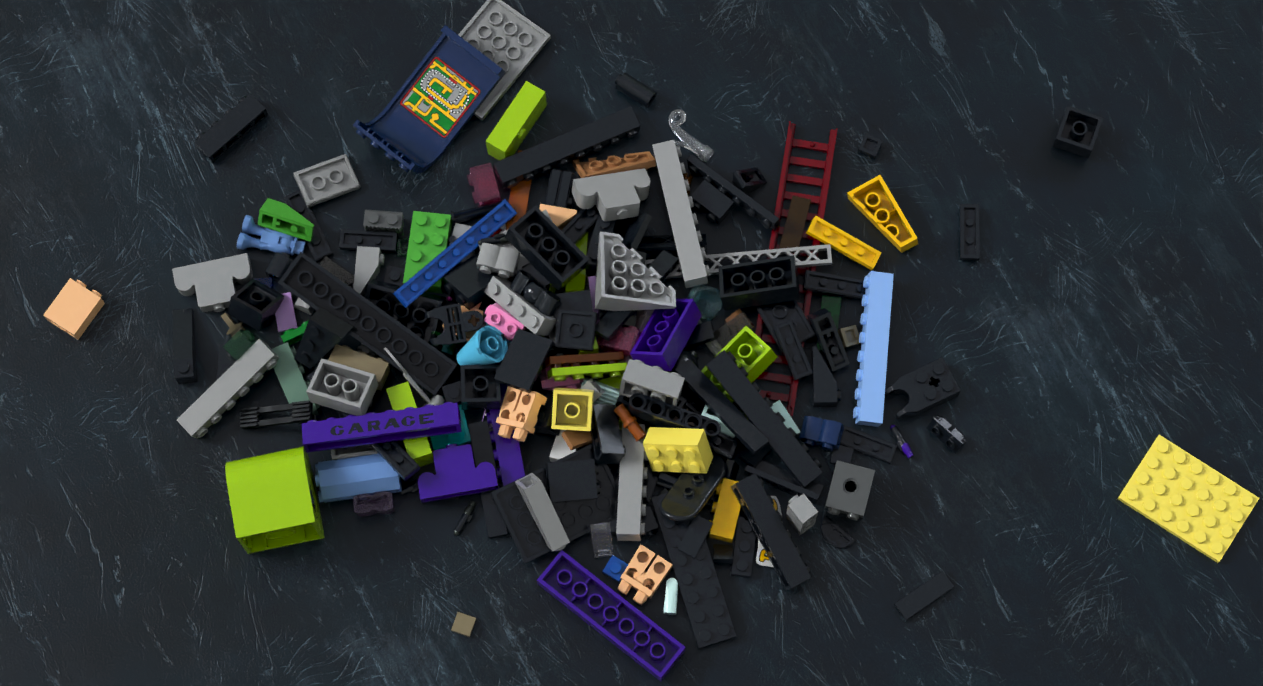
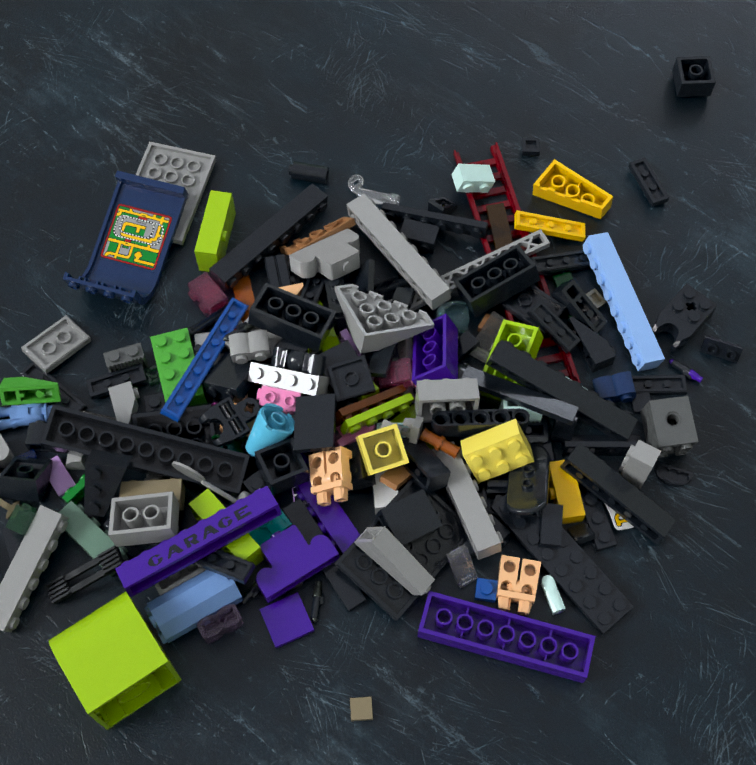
camera: 25 degrees left, 10 degrees down
(432, 524) = (287, 620): none -> dark purple tile
(611, 399) = (415, 428): none -> light grey tile
(791, 162) = (473, 178): none -> light aqua brick

